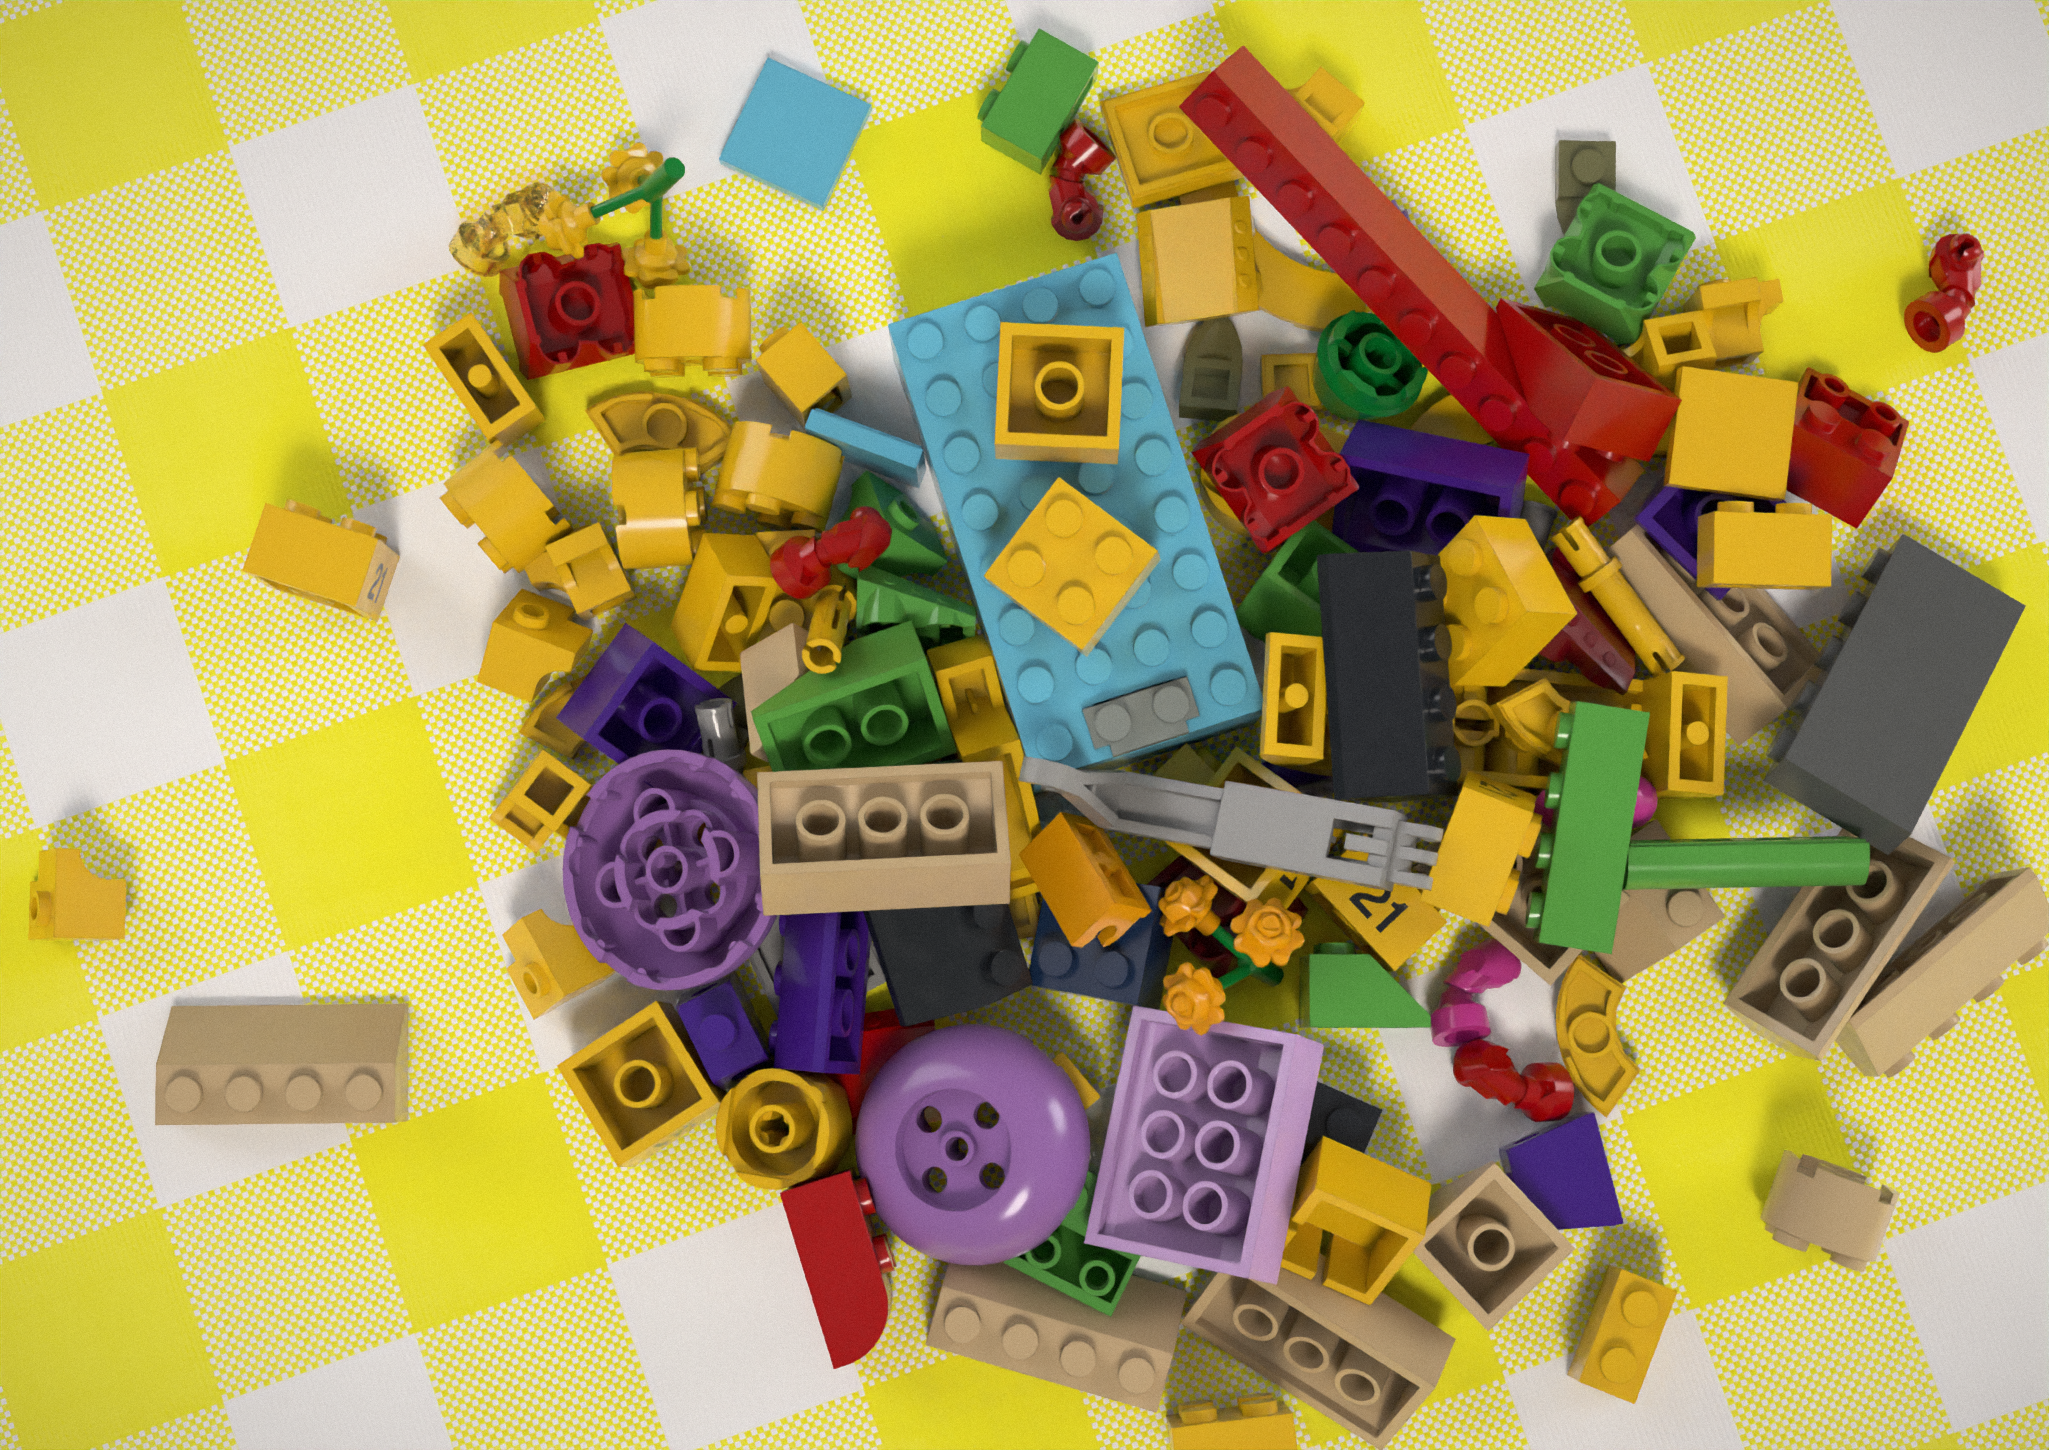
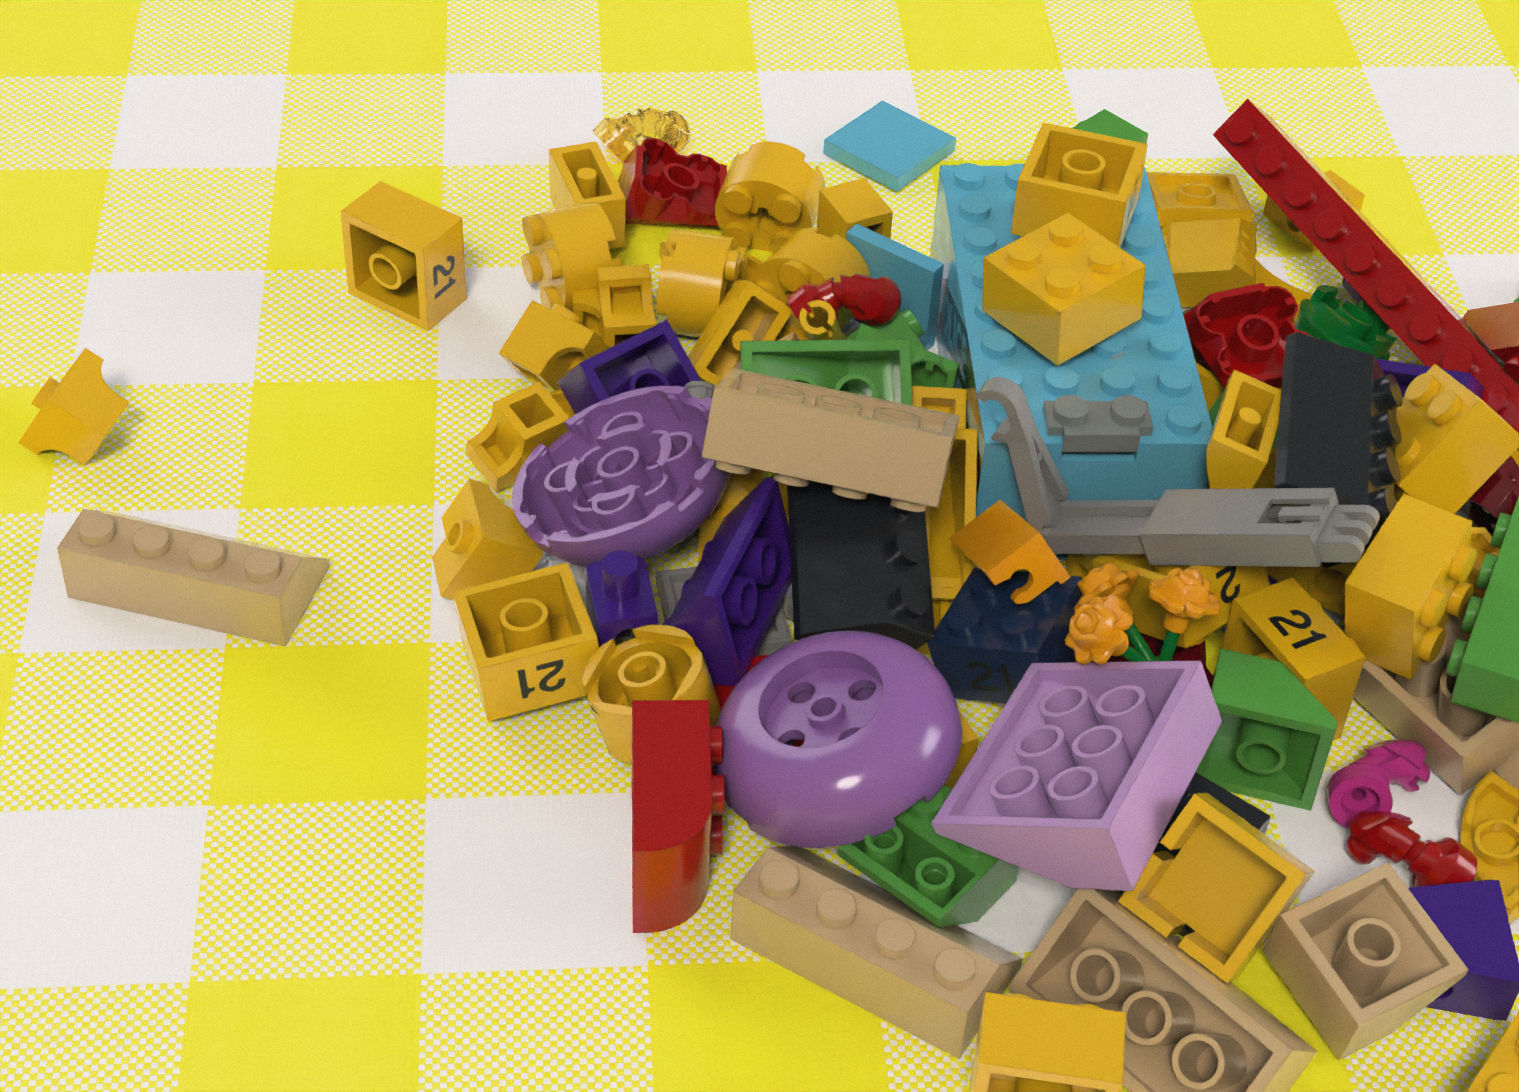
camera: 15 degrees right, 40 degrees down
(633, 183) = (749, 127): yellow plant -> none

